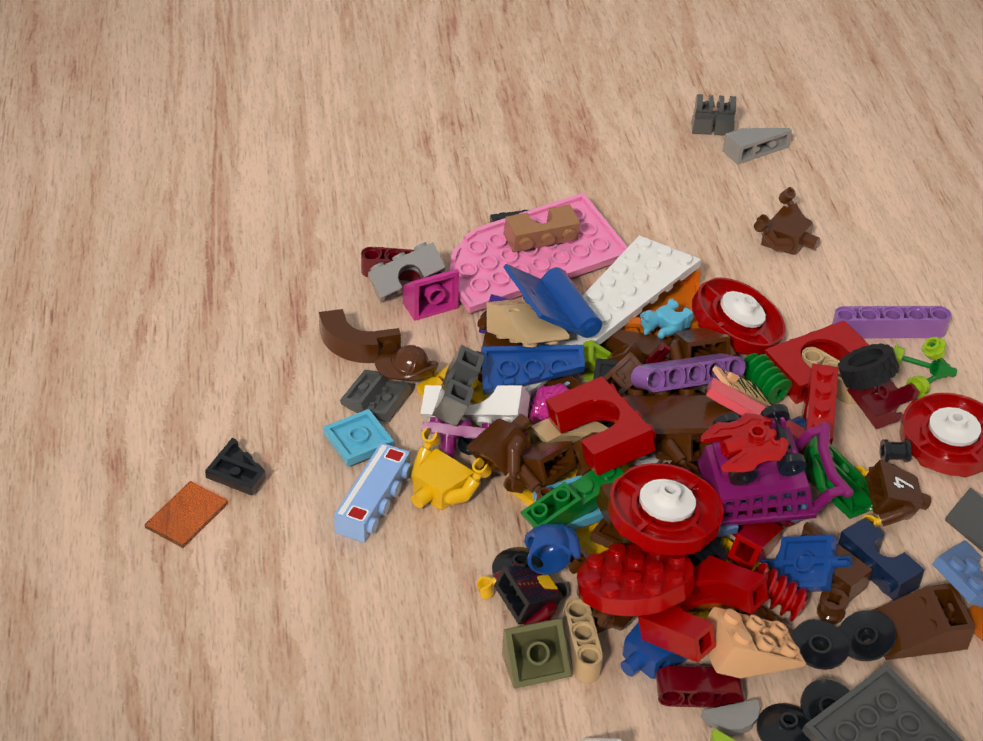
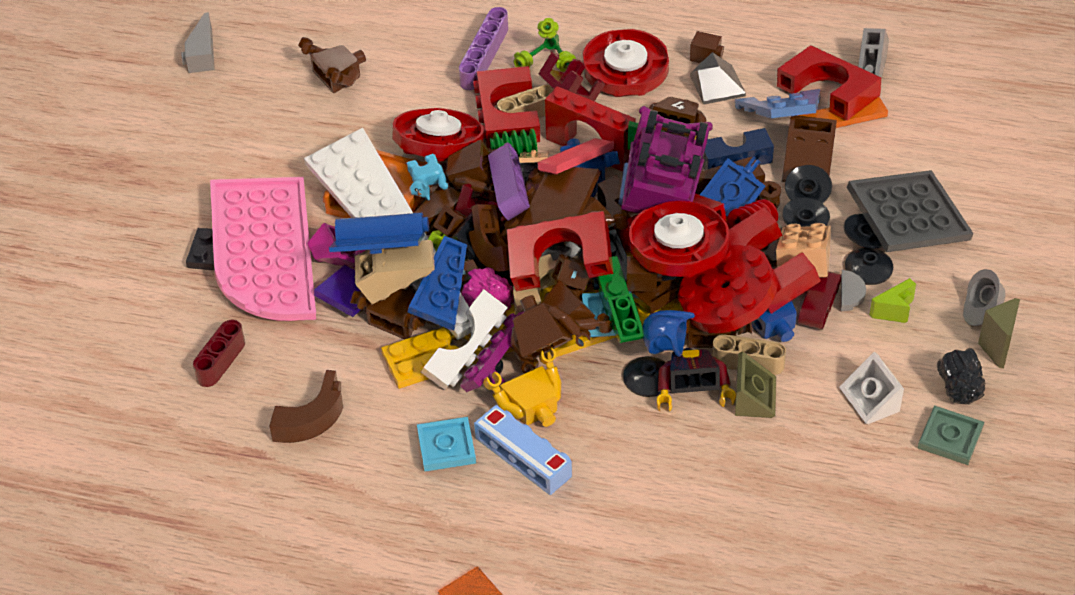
camera: 65 degrees left, 5 degrees up
(236, 469) = (443, 547): black wing -> none
(376, 394) = (392, 417): dark grey slope -> none
(406, 364) = (374, 380): reddish brown hat -> none
(423, 260) = (247, 359): light grey arch -> none
(432, 295) = (284, 336): dark pink slope -> none
(456, 387) = (439, 329): dark grey arch -> none
(526, 234) = (250, 231): medium nougat arch -> none
(721, 119) = (148, 55): dark grey legs -> none
(747, 442) = (678, 145): red piece -> none
(868, 366) = (557, 57): black tyre -> none
(895, 450) = (628, 100): black bush -> none

